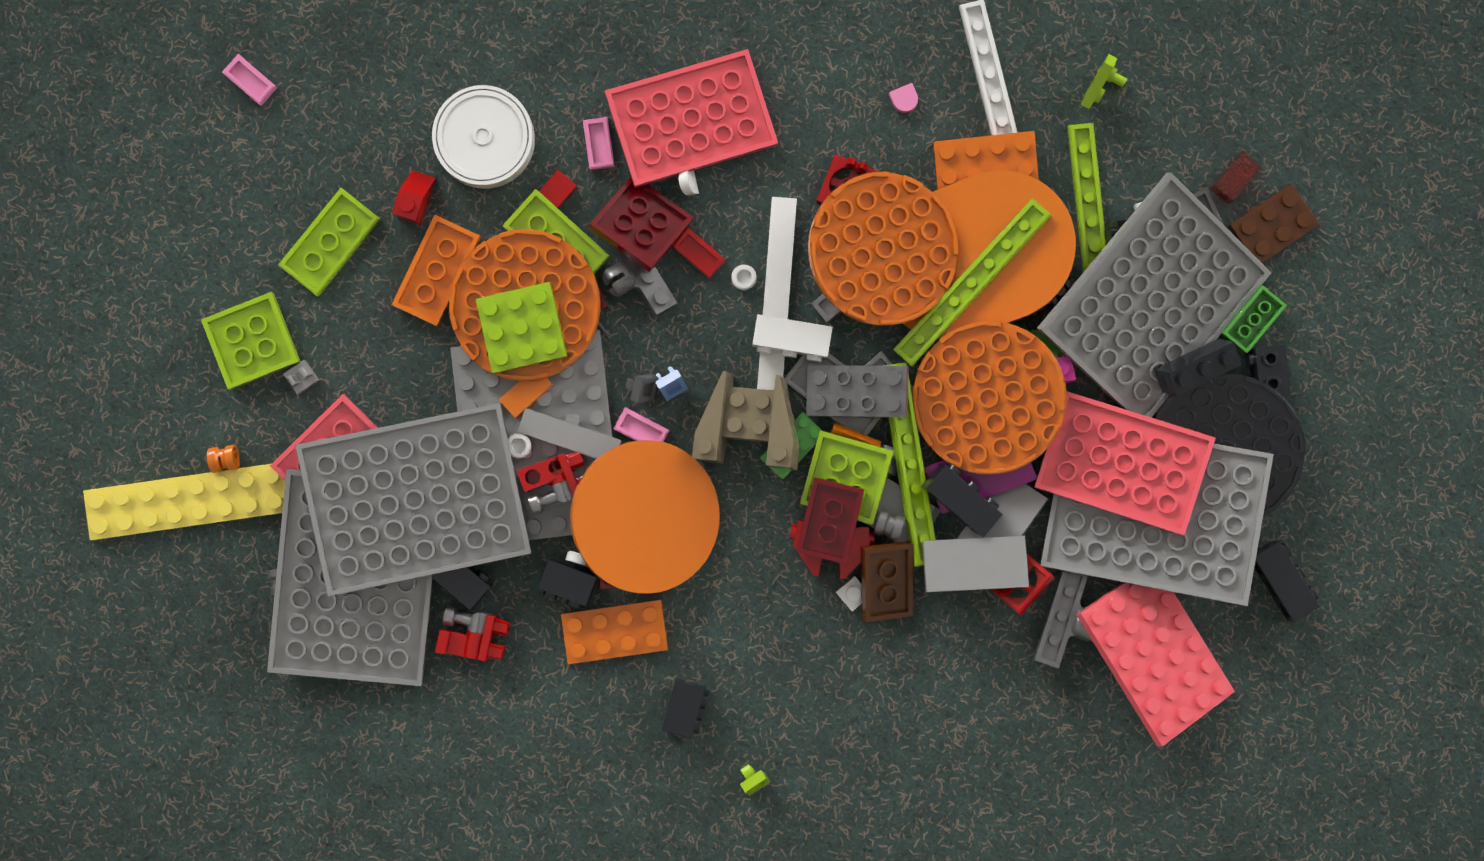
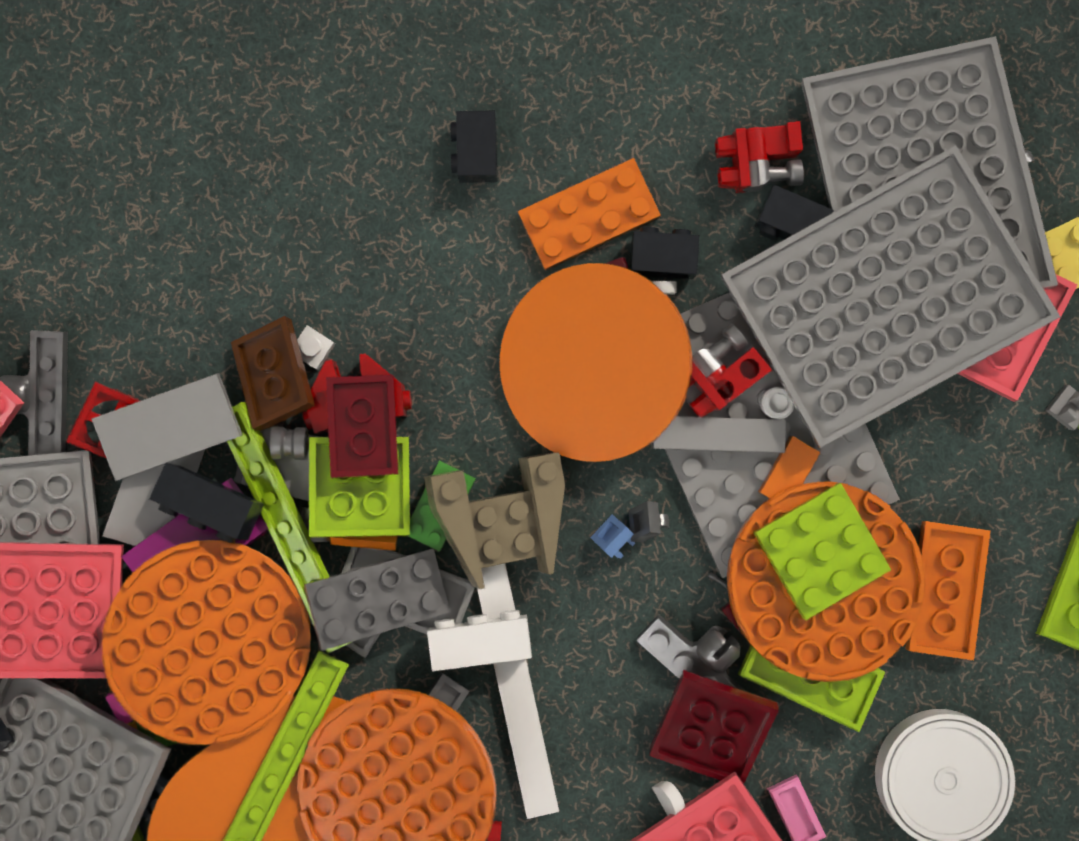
camera: 165 degrees right, 0 degrees up
(414, 197) = (1006, 673): red slope -> none
(558, 189) = (828, 739): red tile -> none
(639, 427) = (634, 471): bright pink tile -> none
(698, 253) = (629, 711): red tile -> none
(743, 277) = (563, 698): white tile -> none
(754, 780) = (366, 86): lime tile -> none

